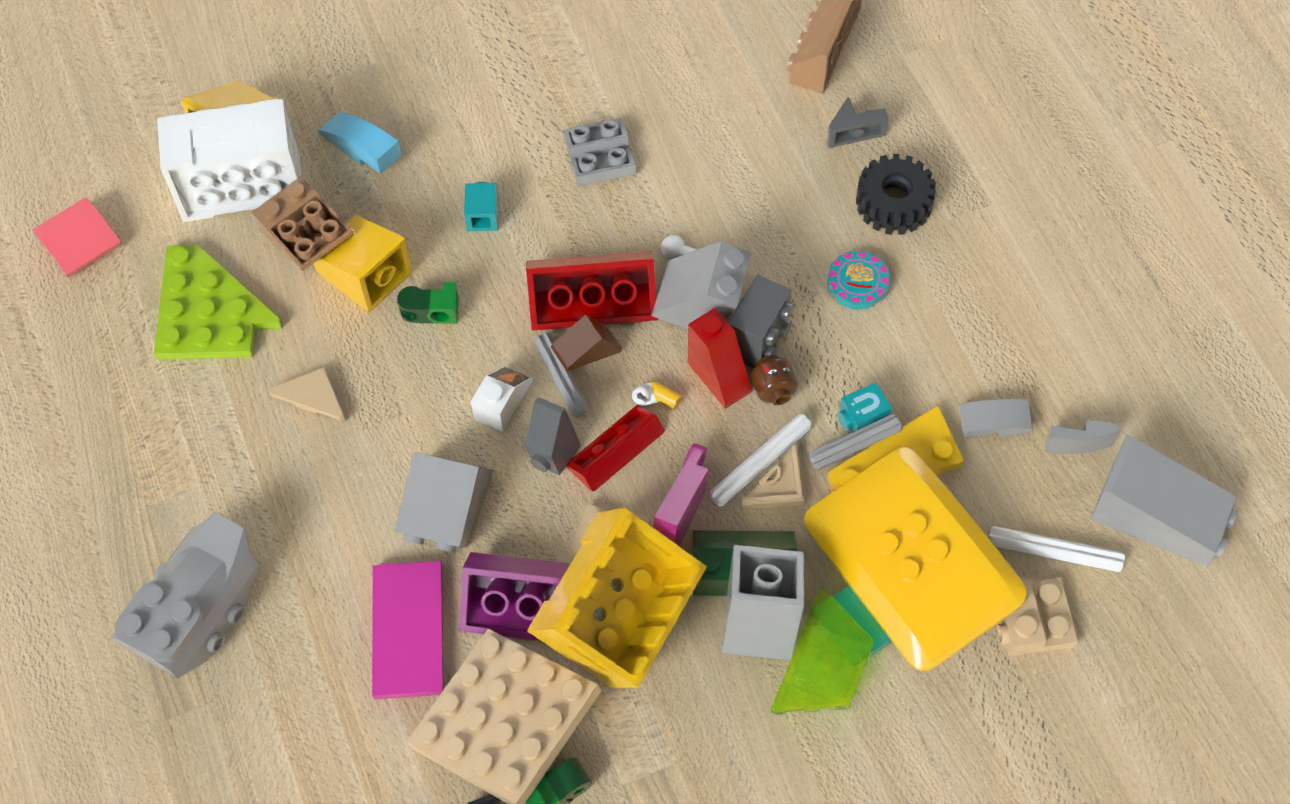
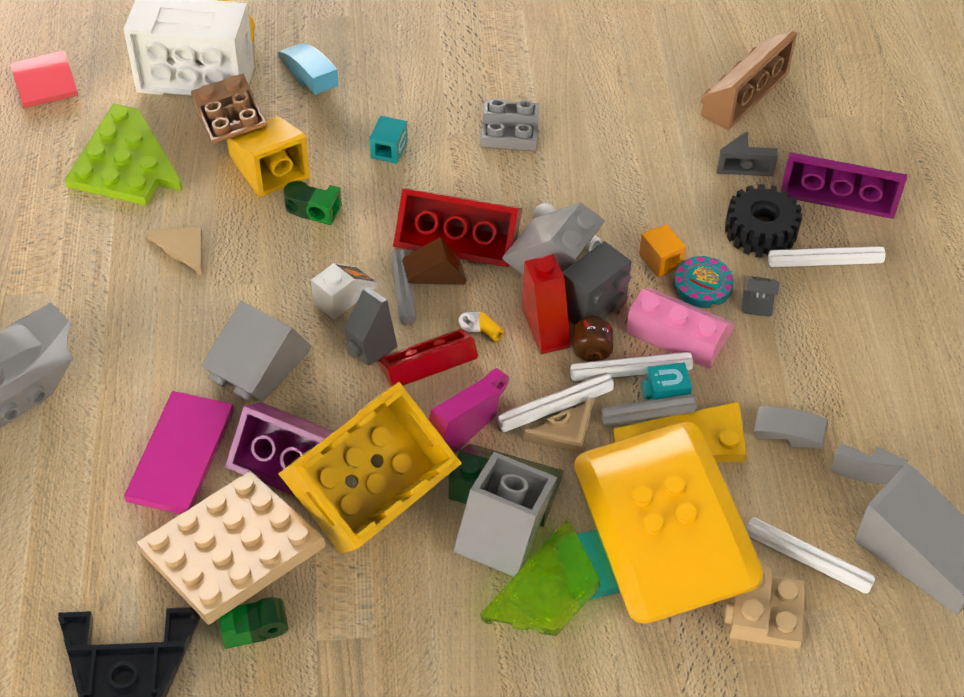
camera: 15 degrees right, 10 degrees down
(807, 257) = (662, 250): none -> light orange brick
(819, 397) = (626, 366): none -> white axle
(853, 338) = (678, 326): none -> bright pink slope
(918, 278) = (759, 295): none -> dark grey slope
(961, 130) = (843, 185): none -> magenta slope
(968, 216) = (826, 256): none -> white axle

